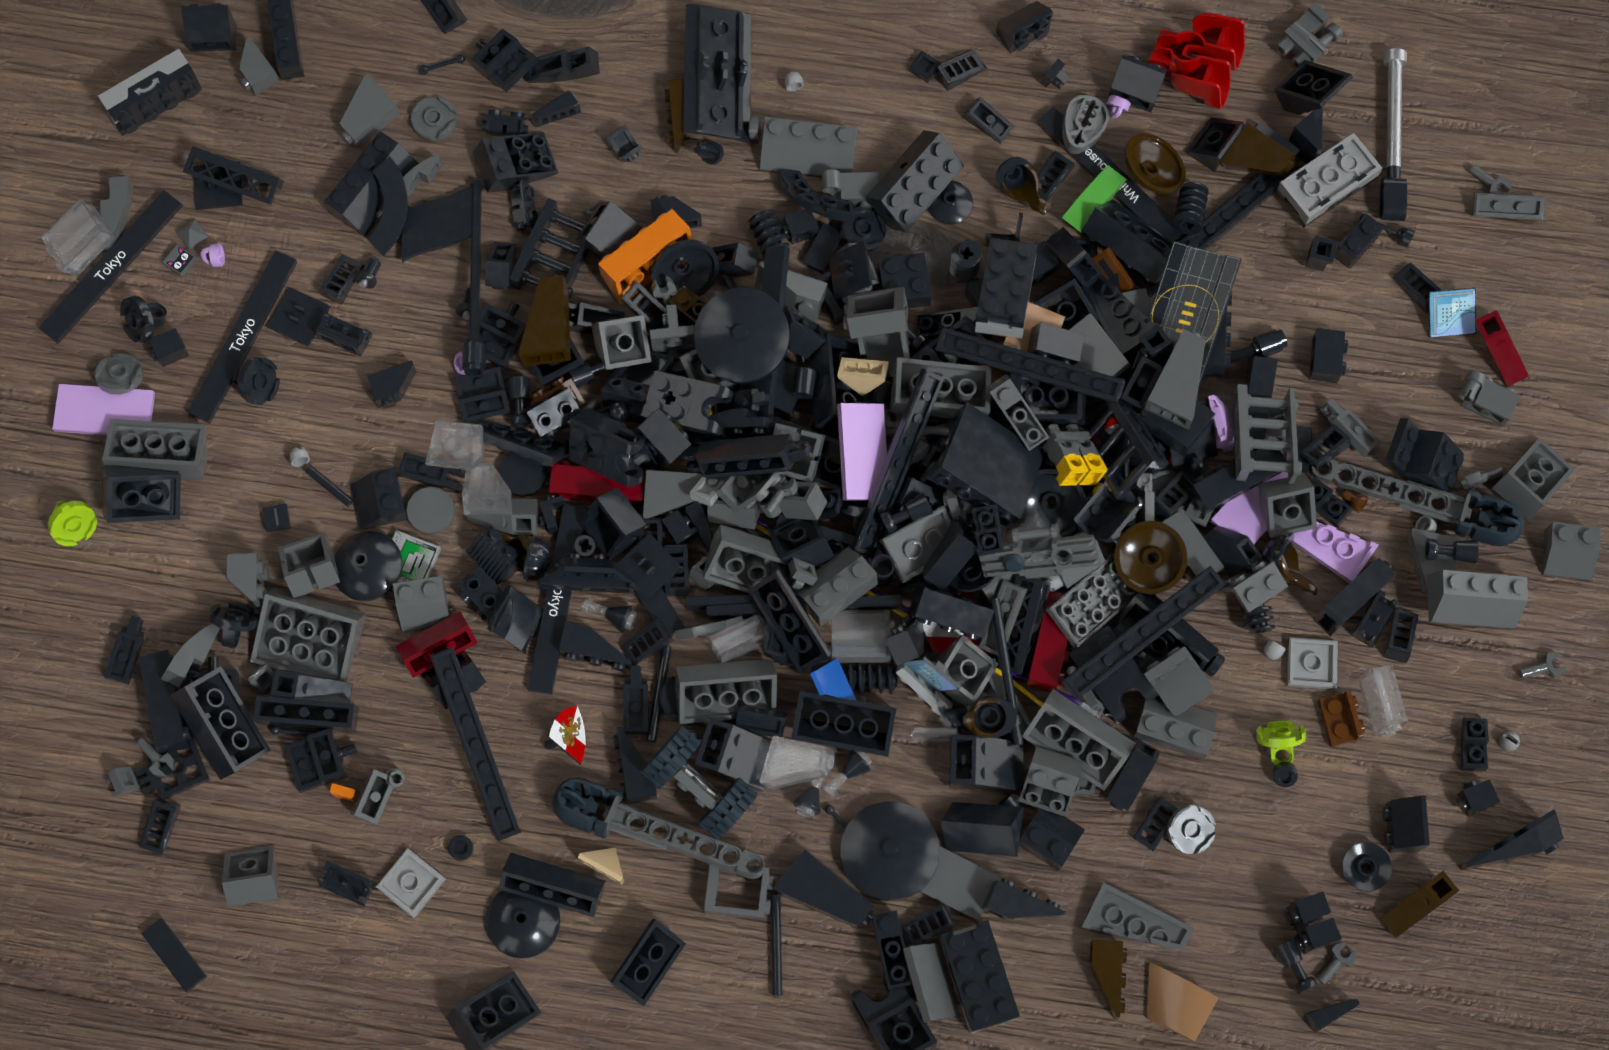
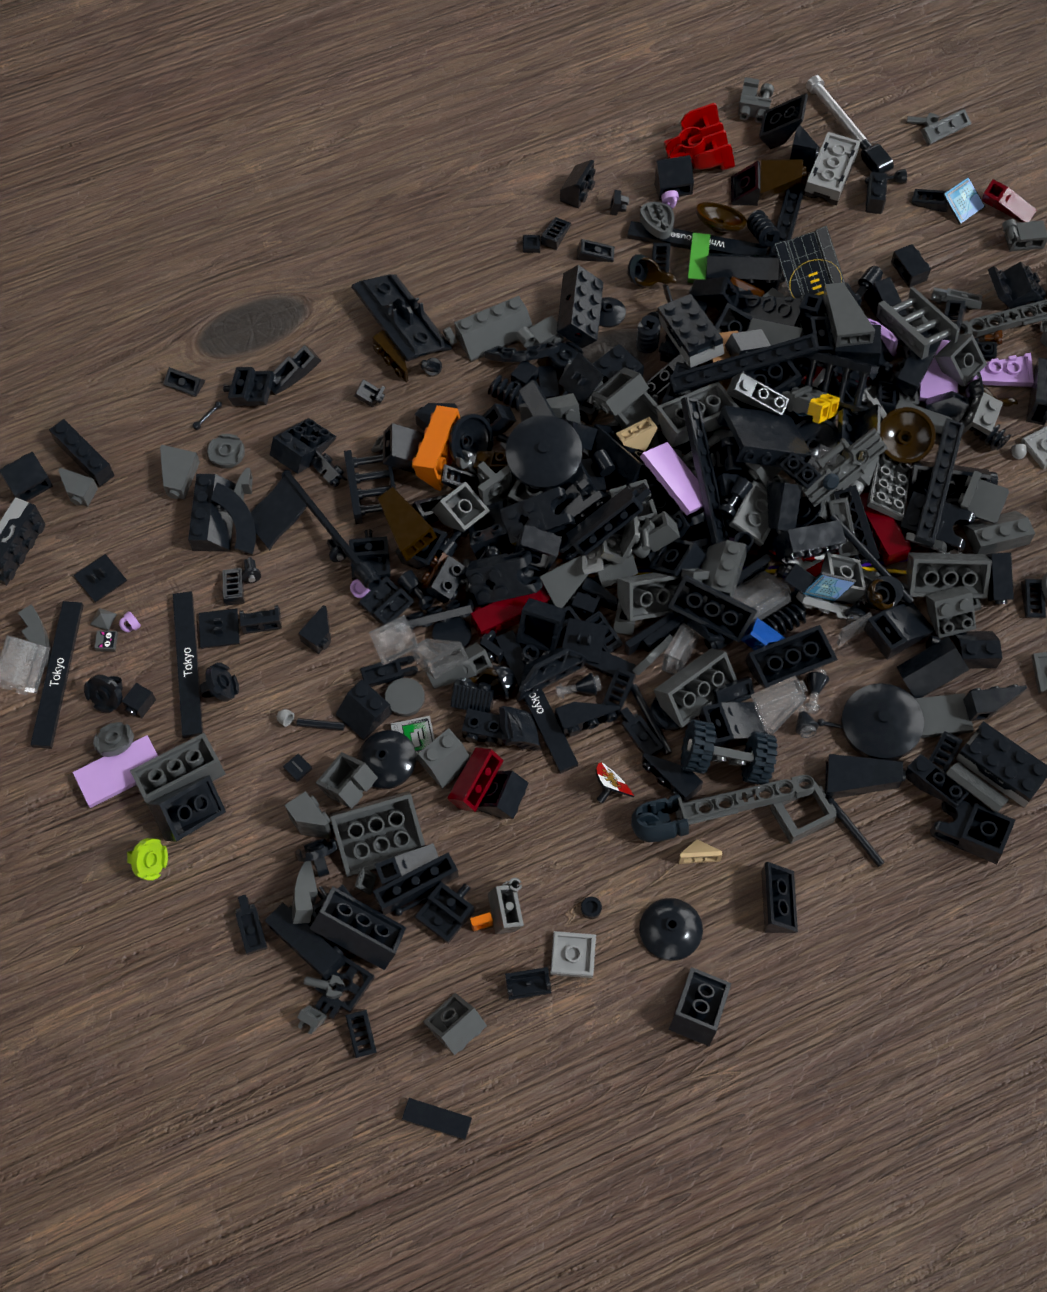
camera: 30 degrees left, 10 degrees down
(238, 169) = (108, 556): black fence -> none
(475, 744) = (553, 827): black tile -> none
(495, 122) = (271, 426): black hinge -> none
(500, 265) = (340, 513): black slope -> none
(551, 884) = (675, 888): black brick -> none
(558, 109) = (312, 393): black slope -> none
(793, 81) = (454, 296): light grey hinge -> none
(1321, 253) = (861, 209): black brick -> none

